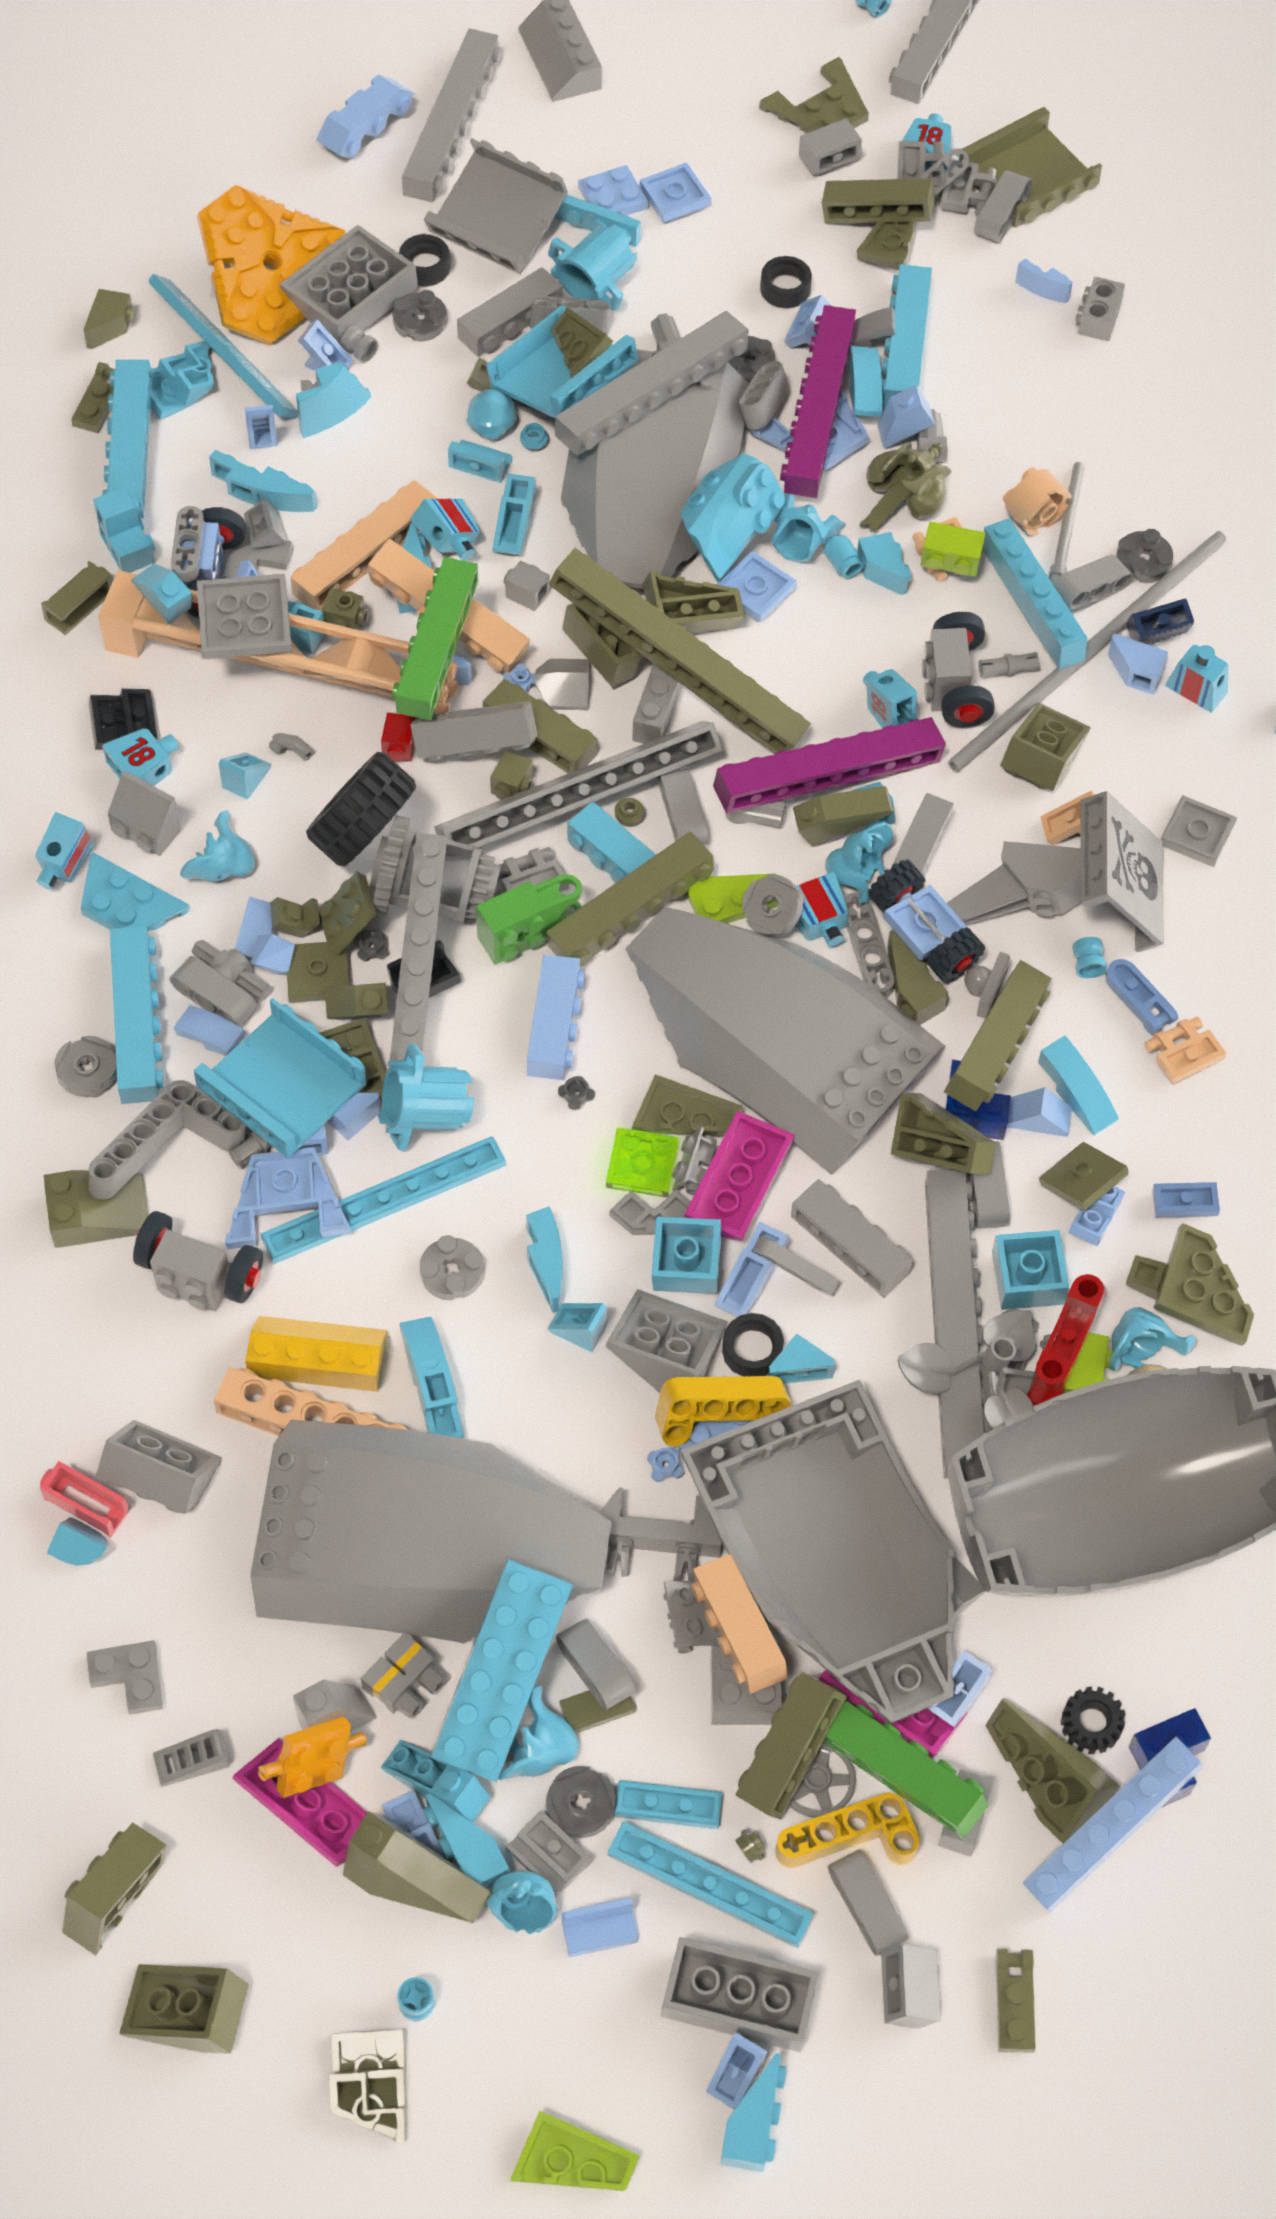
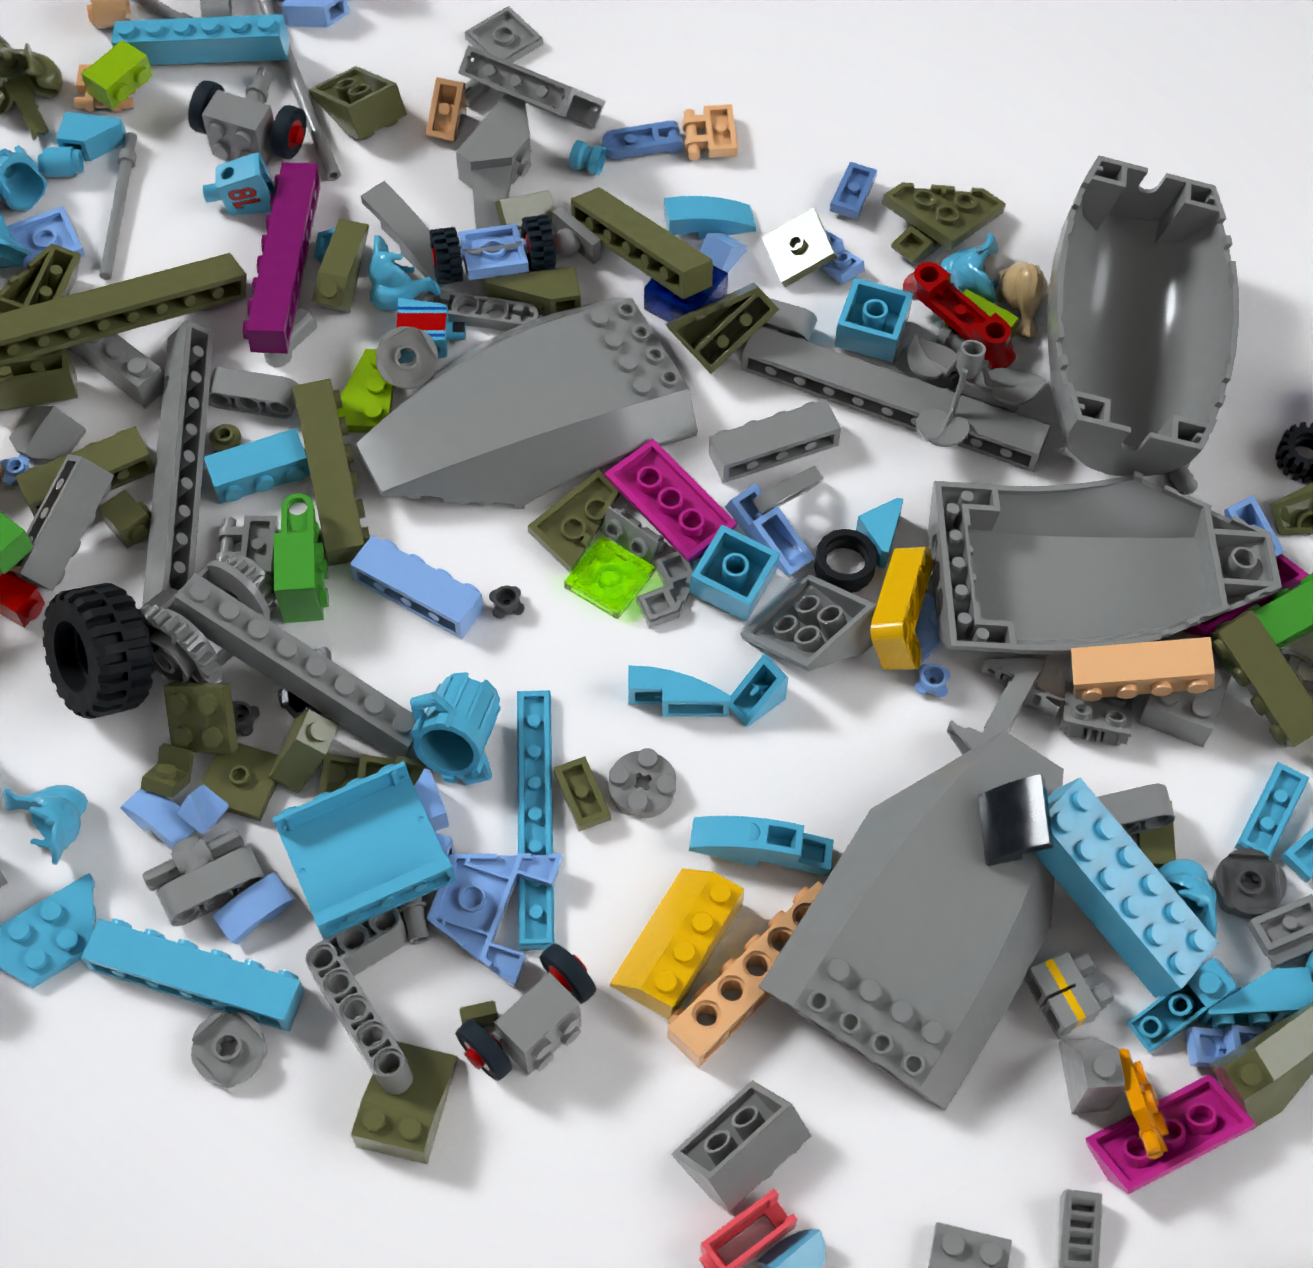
camera: 65 degrees left, 0 degrees up
(184, 1225) = (482, 1013): none -> olive tile
(418, 1224) = (582, 793): none -> olive plate
(504, 1545) = (1015, 820): none -> black slope
(876, 603) = (126, 161): none -> light grey bar
(994, 930) = (515, 208): none -> tile
(1005, 1608) = (1183, 479): none -> light grey arm

